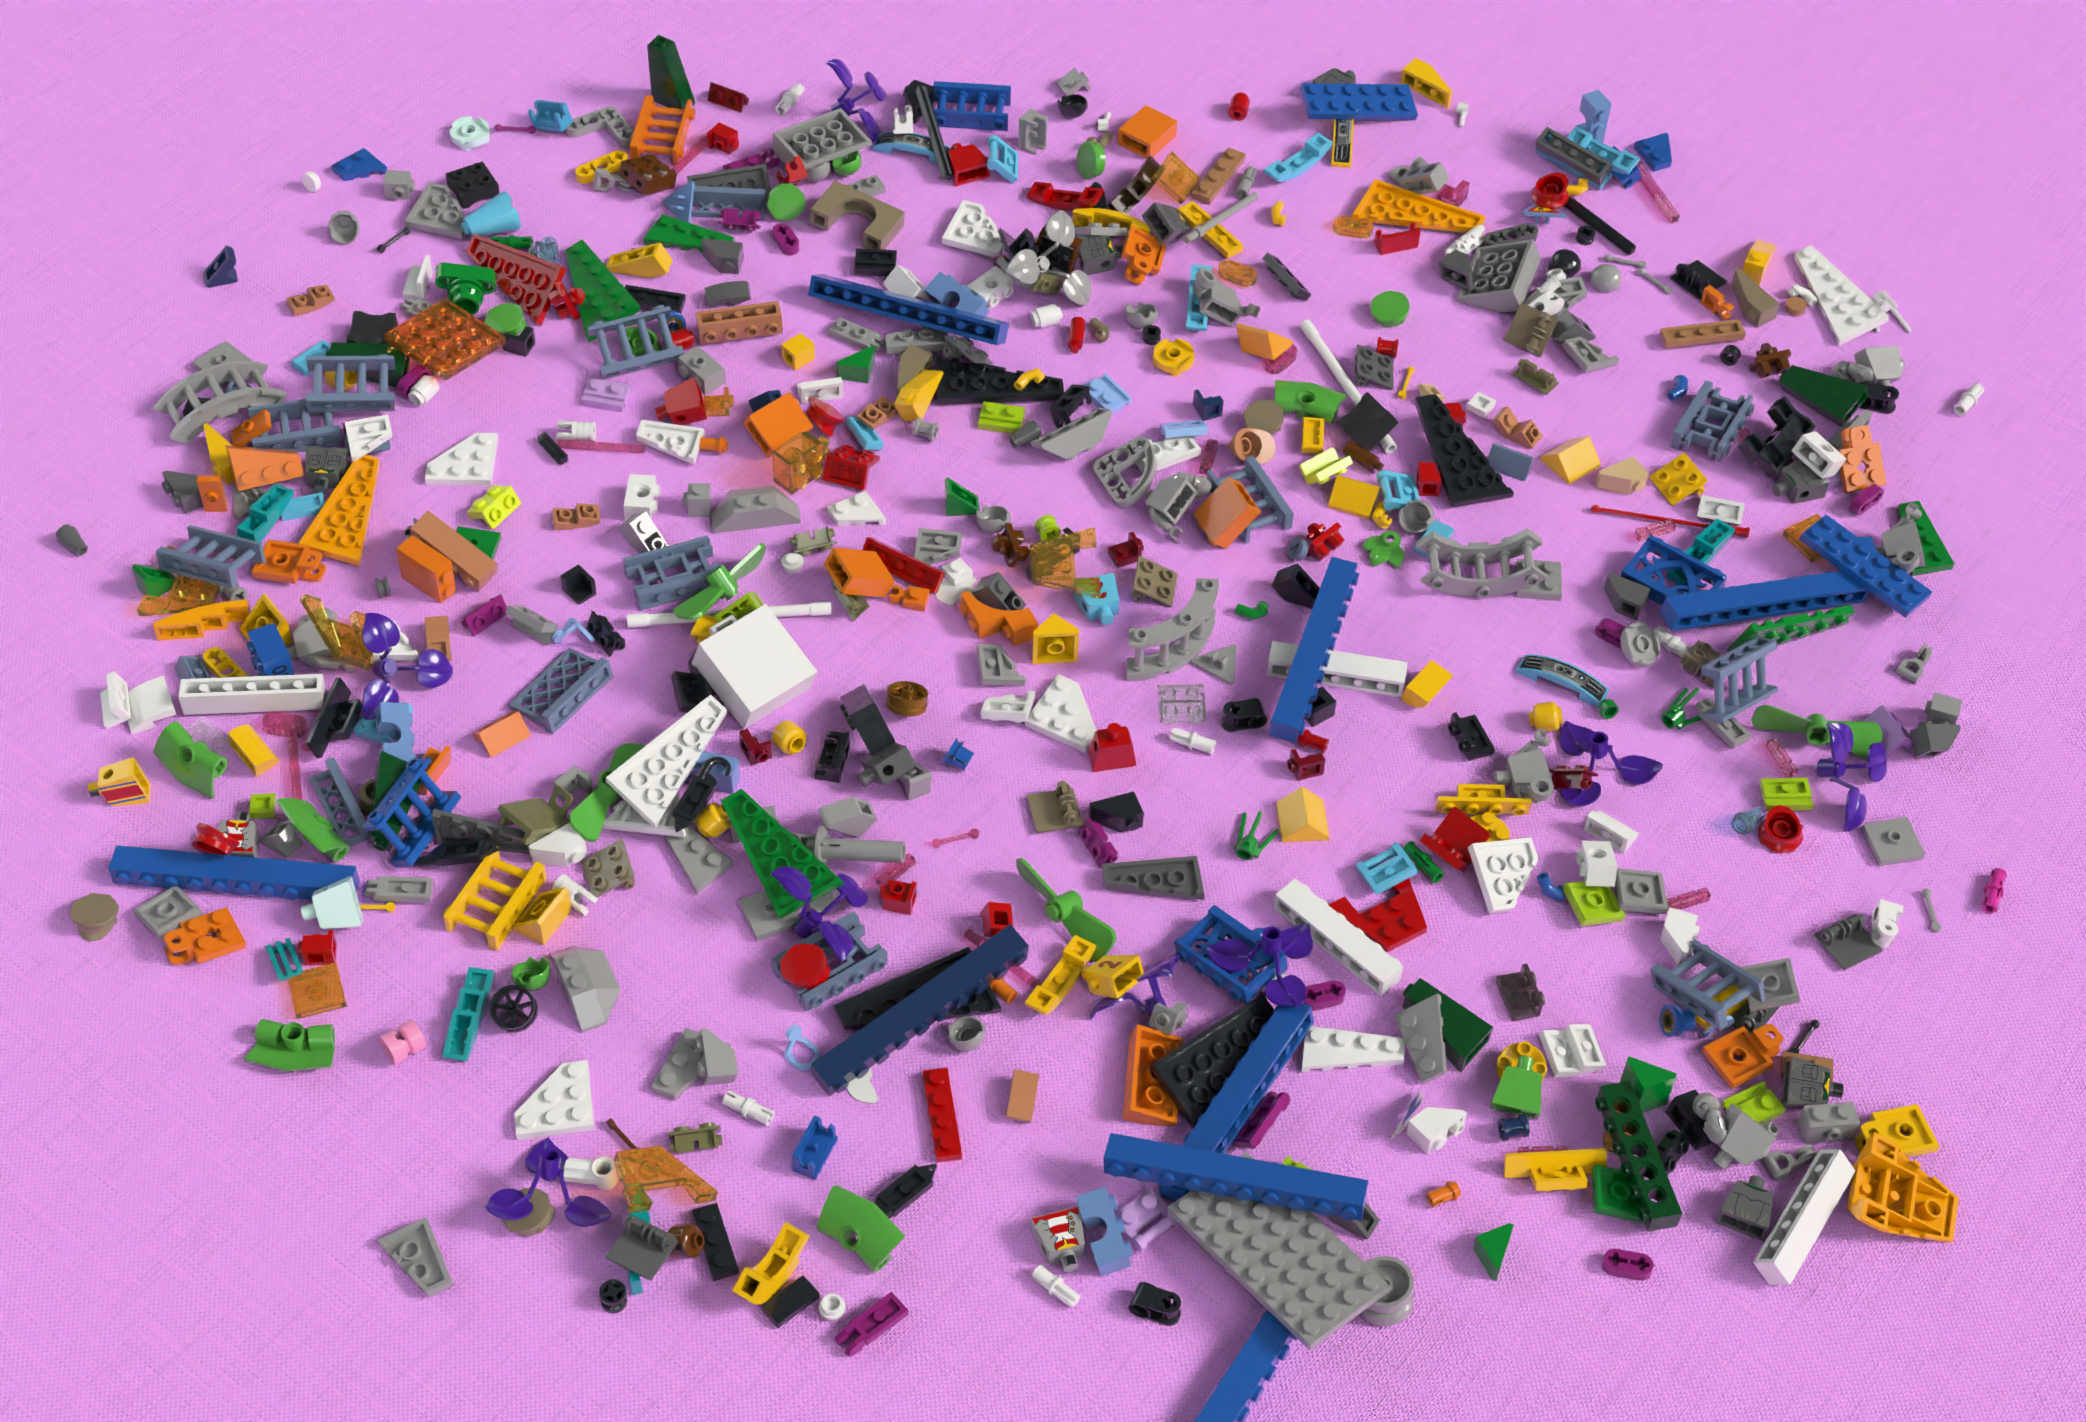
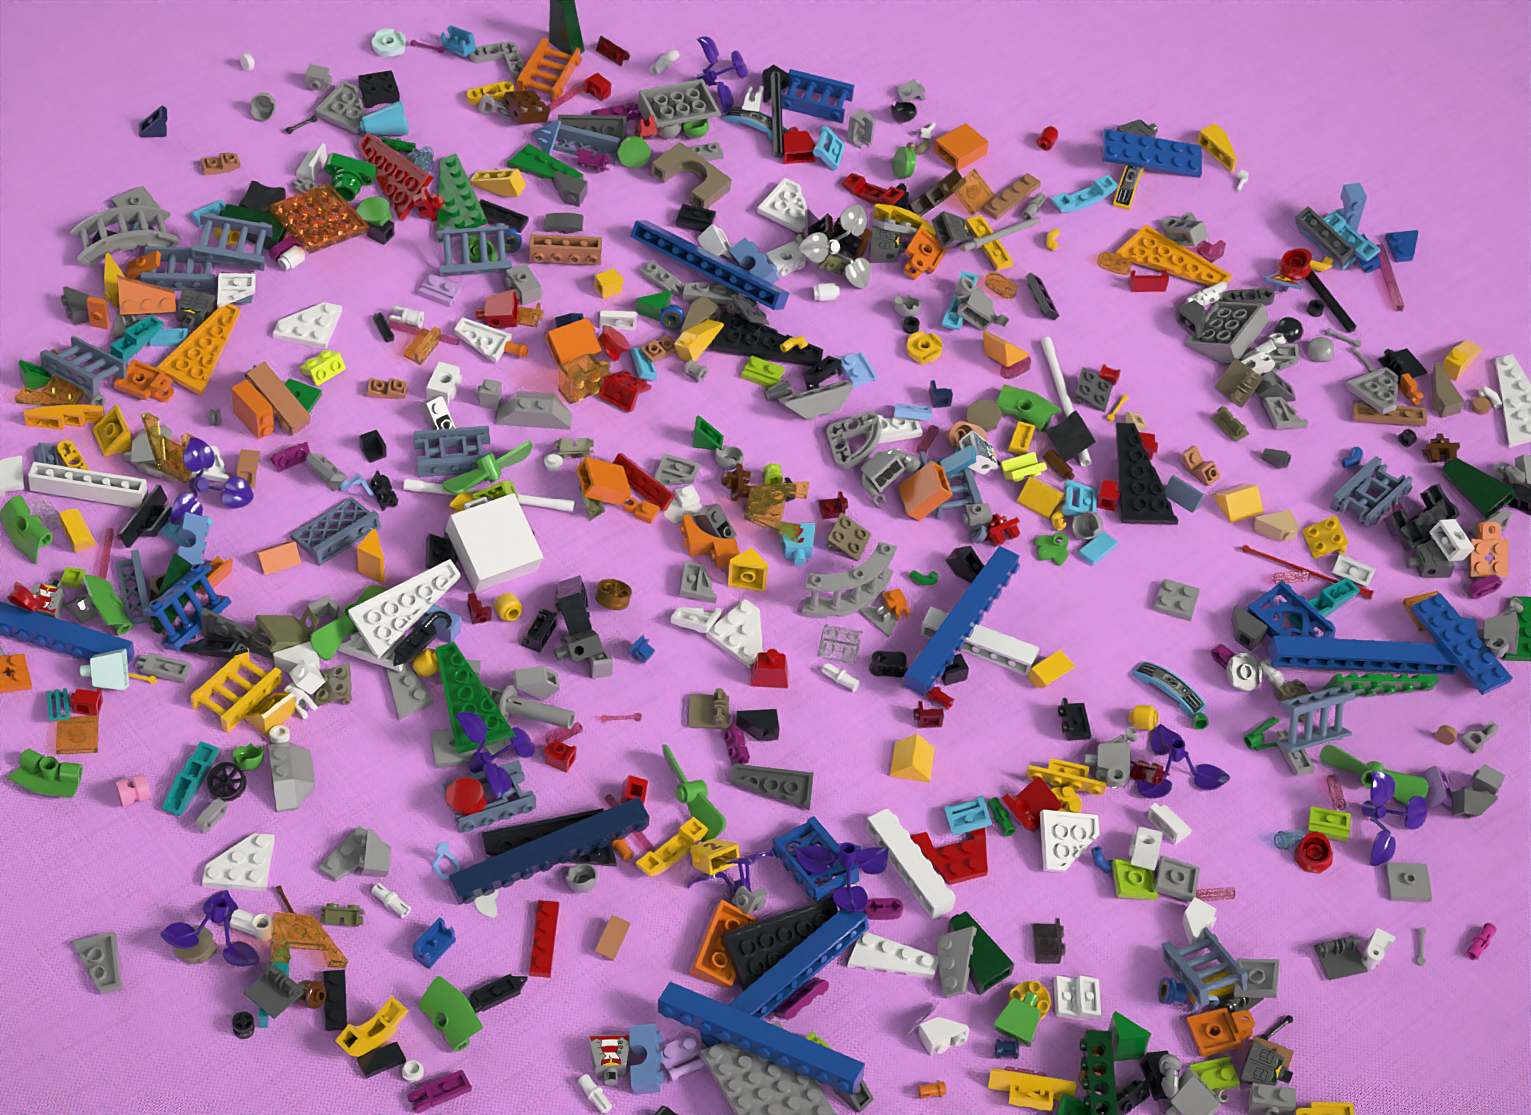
camera: 10 degrees right, 0 degrees up
(269, 652) = (109, 453): blue brick -> none
(284, 725) = (108, 514): clear pink beam -> none
(358, 166) = (289, 55): blue wing -> none
(505, 1052) = (211, 815): none -> light grey beam
(560, 939) = (279, 734): none -> white tile
(576, 866) = (307, 677): none -> white brick
(604, 459) = (423, 345): none -> clear yellow panel
(614, 712) = (371, 558): none -> light orange slope
(683, 337) = (515, 254): red brick -> none
(789, 237) = (630, 183): magenta beam -> none
(856, 511) = (618, 428): white wing -> none
(878, 379) = (672, 317): none -> blue piece
(1076, 334) = (847, 312): red cylinder -> none
(1102, 330) = (870, 314): dark tan arm -> none
(1230, 643) = (896, 602): none -> orange plate
(1247, 846) = (859, 772): green plant -> none
(1256, 471) = (959, 461): none -> dark azure tile
(1272, 460) = (984, 453): none -> white torso
(1290, 528) = (977, 514): none -> light grey brick
(1390, 308) = (1122, 341): bright green hat -> none
(1479, 553) = (1130, 567): light grey fence -> none
(1481, 405) = (1175, 439): white plate -> none
(1598, 402) = (1277, 457): none -> dark grey cone
(1682, 309) = (1377, 389): none -> light grey plate
(1880, 669) = (1446, 734): none -> medium nougat tile

